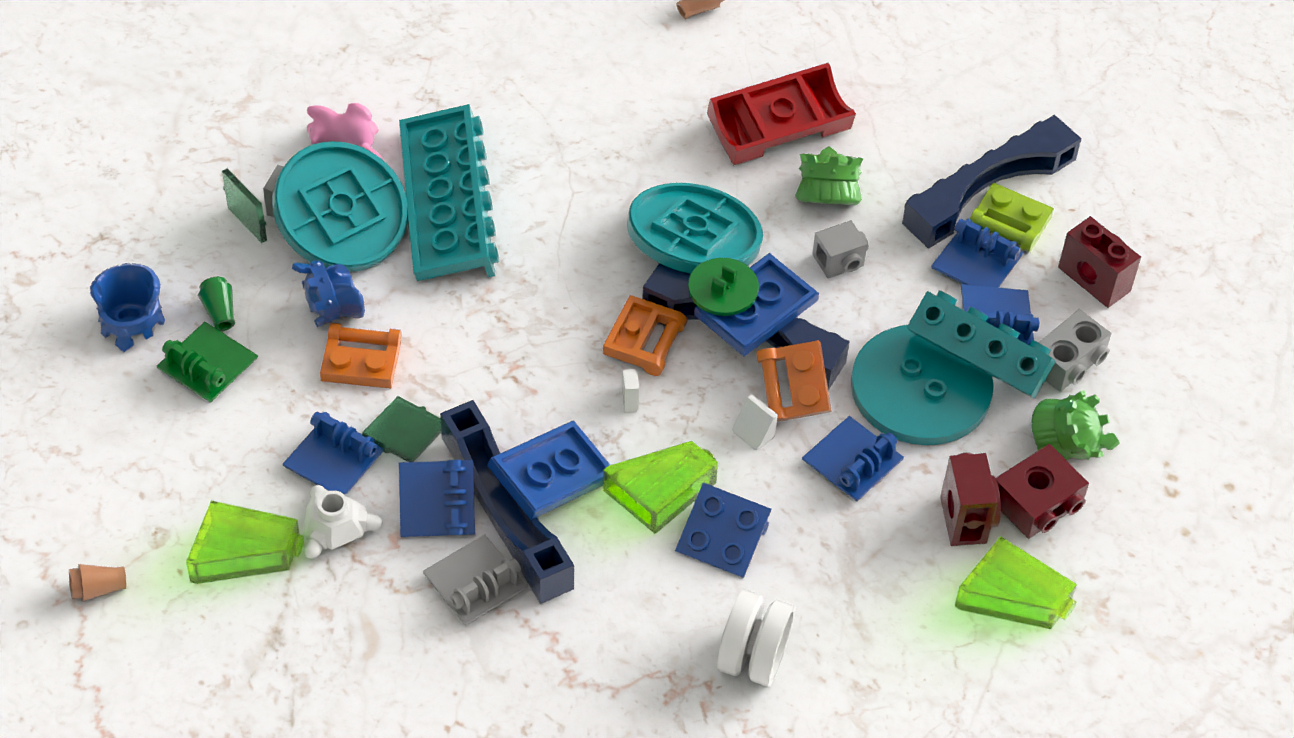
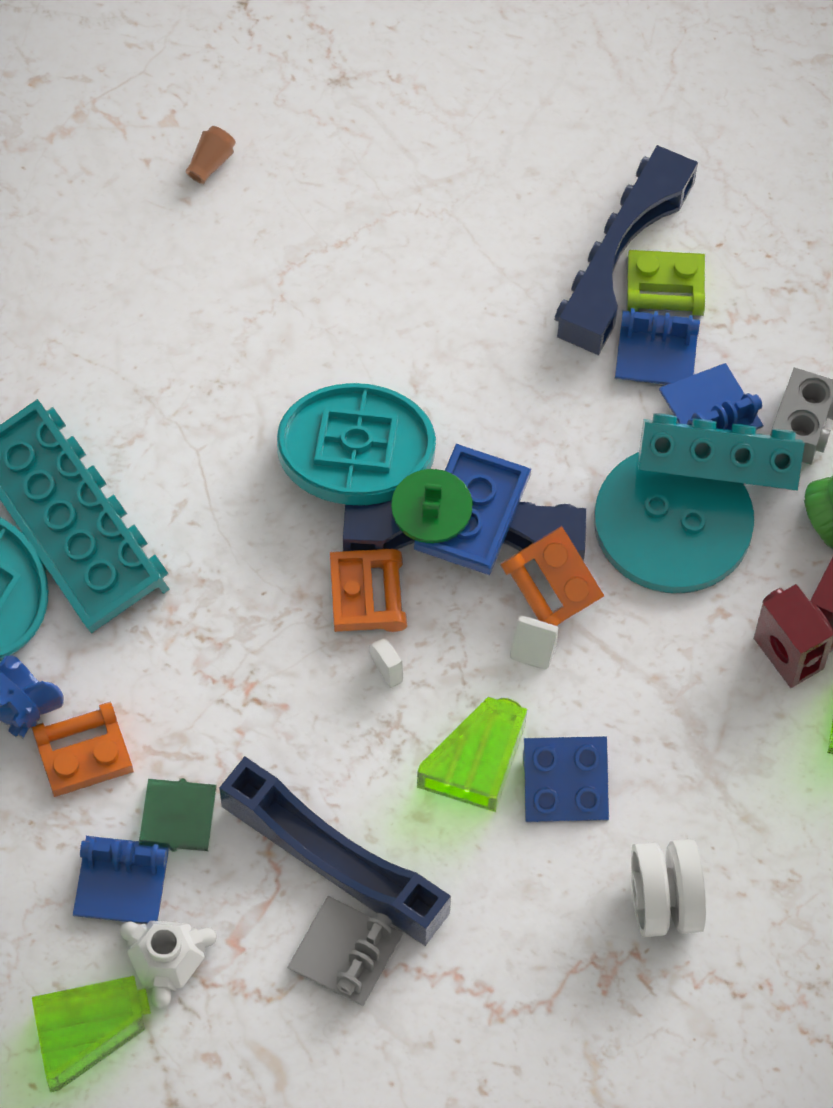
camera: 25 degrees left, 10 degrees up
(436, 498) = (260, 881): blue hinge -> none
(550, 469) = (360, 793): blue tile -> none
(779, 112) = (370, 264): red piece -> none
(829, 178) = (462, 320): bright green hair -> none
(840, 249) = (516, 400): light grey brick -> none
(854, 457) = (650, 635): blue hinge -> none
(1099, 261) = (784, 301): dark red brick -> none

